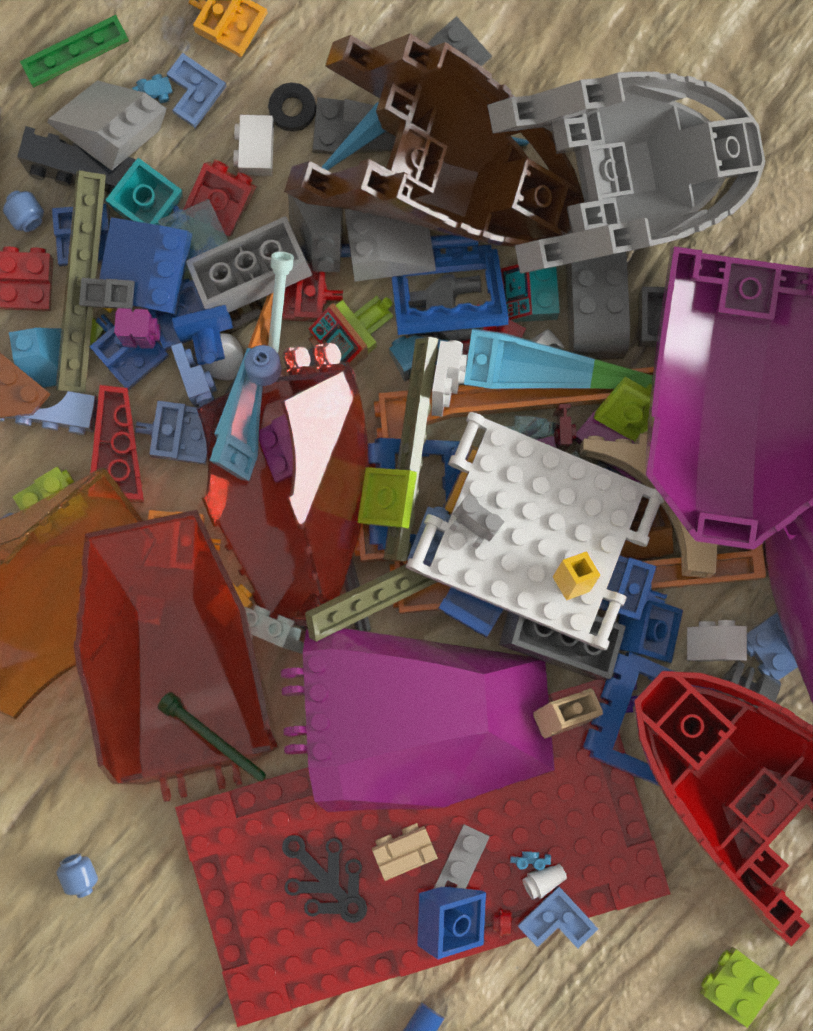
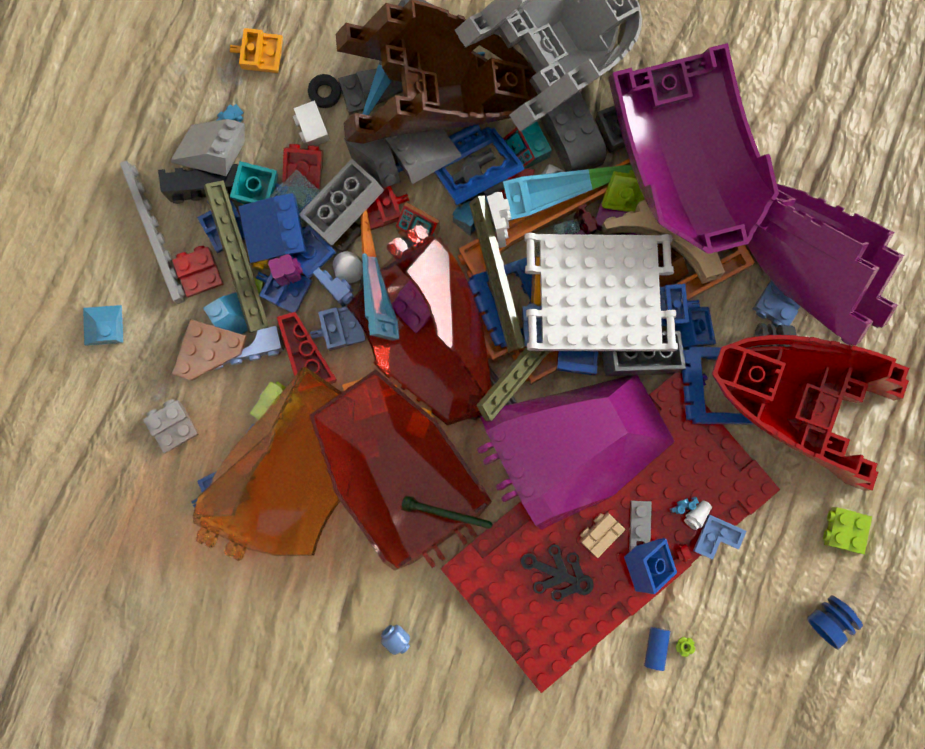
camera: 20 degrees left, 0 degrees up
(23, 211) = (179, 227): medium blue head -> none
(74, 51) = (169, 112): green plate -> none
(106, 293) = (256, 255): dark grey slope -> none
(201, 86) = (260, 101): medium blue plate -> none
(205, 331) = (329, 253): blue piece -> none
(262, 365) = (377, 260): medium blue head -> none
(275, 631) = (458, 427): light aqua plate -> none
(281, 264) = (363, 190): light aqua piece -> none
(368, 318) = (431, 203): lime piece -> none
(387, 497) = (495, 310): lime plate -> none
(477, 520) = (561, 299): light grey piece -> none
(567, 713) = (669, 401): tan brick -> none
(576, 575) = (640, 308): yellow brick -> none
(718, 642) = (742, 317): white brick -> none

